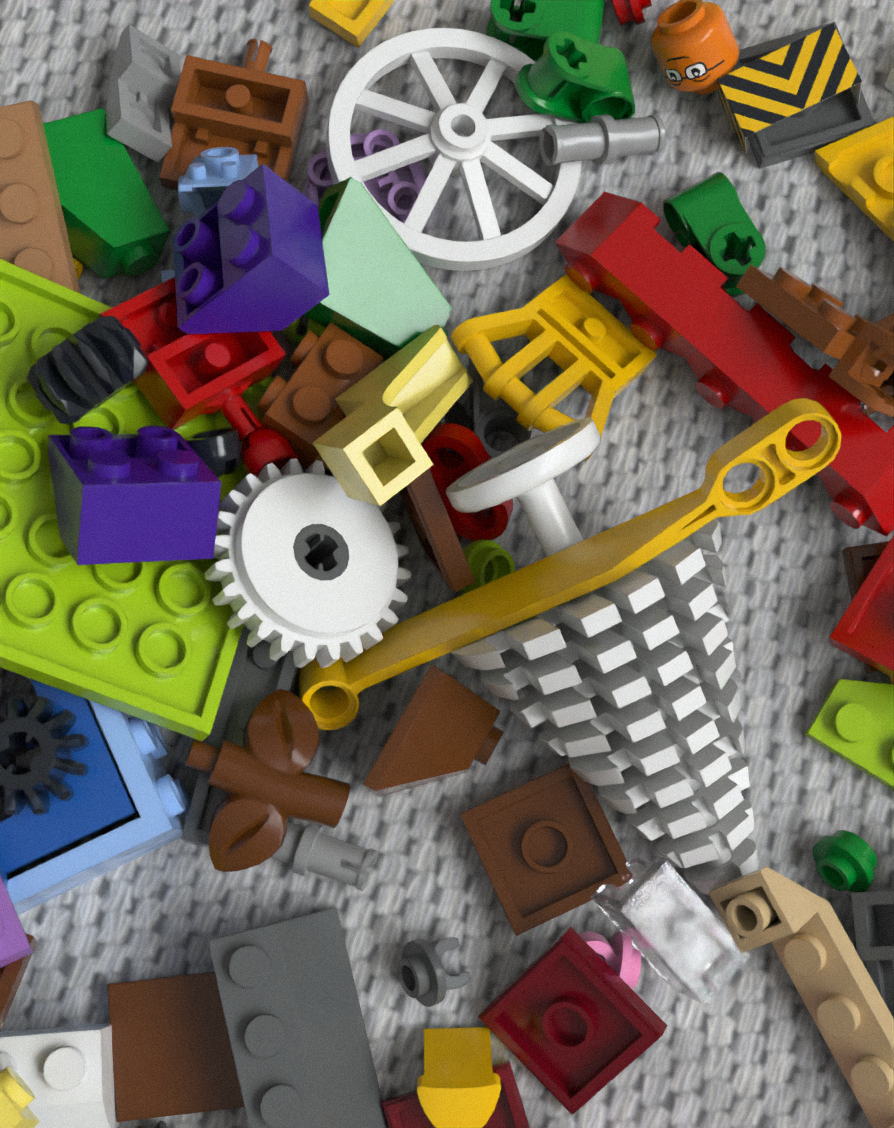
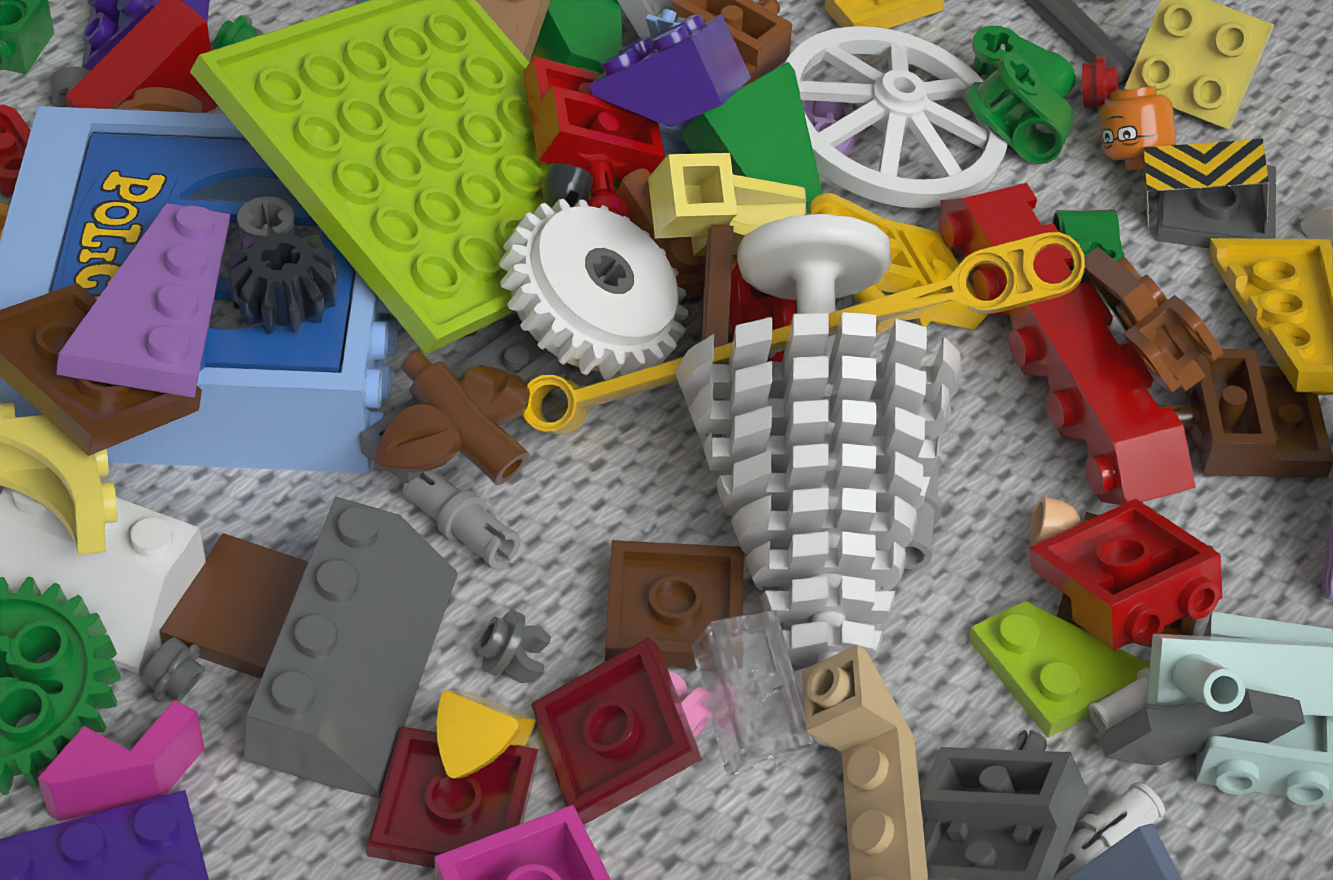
camera: 25 degrees right, 30 degrees down
(87, 369) = (501, 68): black gear -> none
(132, 496) = (484, 159): dark purple slope -> none
(435, 736) = (617, 464): reddish brown slope -> none
(602, 139) = (1022, 156): light grey pin -> none
(833, 576) = (1051, 518): none -> light nougat hinge
(845, 861) = (950, 726): green plate -> none

